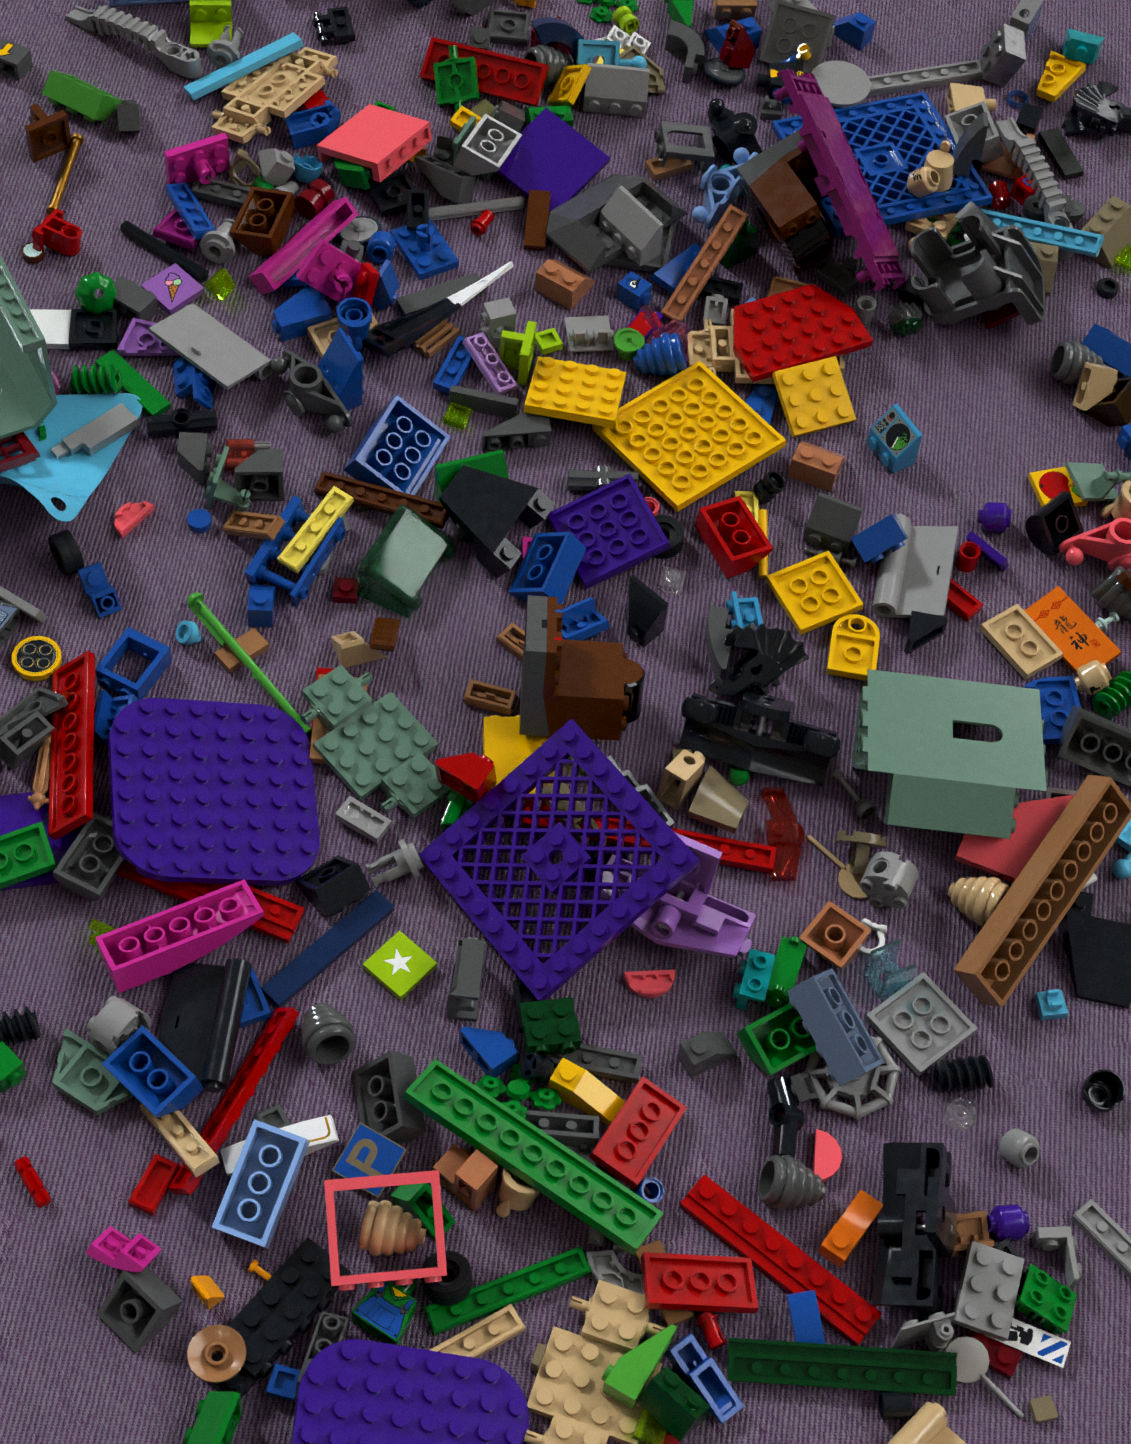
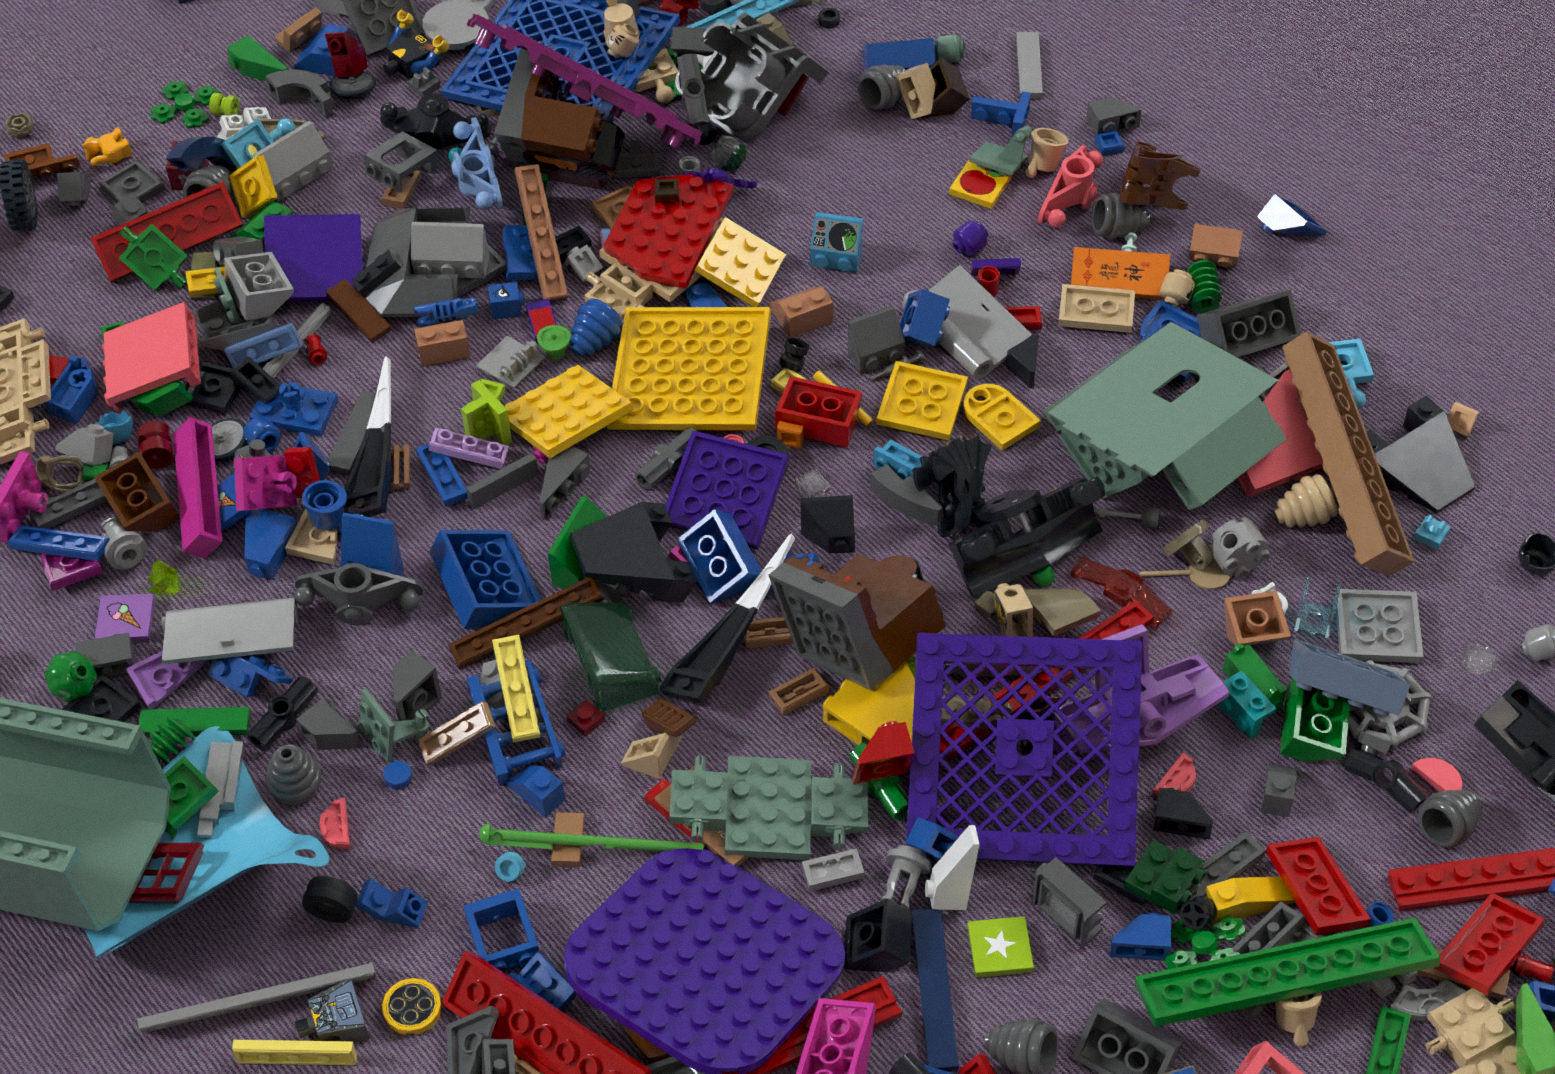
camera: 40 degrees left, 5 degrees down
(69, 416) = (188, 791): none -> green plate
(139, 463) = (293, 775): none -> dark grey piece
(164, 251) = (75, 595): black axle -> none
(241, 450) = (351, 691): clear red piece -> none
(416, 894) = (954, 873): none -> white slope
(436, 866) = (931, 838): none -> blue slope
(449, 192) = (265, 345): none -> medium blue tile
(457, 415) = (492, 510): clear neon green tile -> none
(458, 623) = (709, 659): none -> black plate
(467, 1175) = (1236, 1039): nougat brick -> none
(497, 316) = (439, 407): light grey brick -> none
(571, 203) = (376, 273): none -> black plate
(582, 264) = (446, 311): none -> blue hinge
(615, 1001) = (1181, 815): none -> black slope
(654, 322) = (566, 306): clear pink bracket -> none
(698, 535) = (791, 434): none -> orange tile
(818, 305) = (666, 190): none -> dark brown tile
(850, 1228) = (1520, 807): orange slope -> none
(873, 327) = (715, 175): none -> dark purple animal
(922, 238) = (691, 76): none -> dark grey piece
(961, 1072) = (1448, 631): black piece -> none
(1054, 524) = (1015, 208): black brick -> none

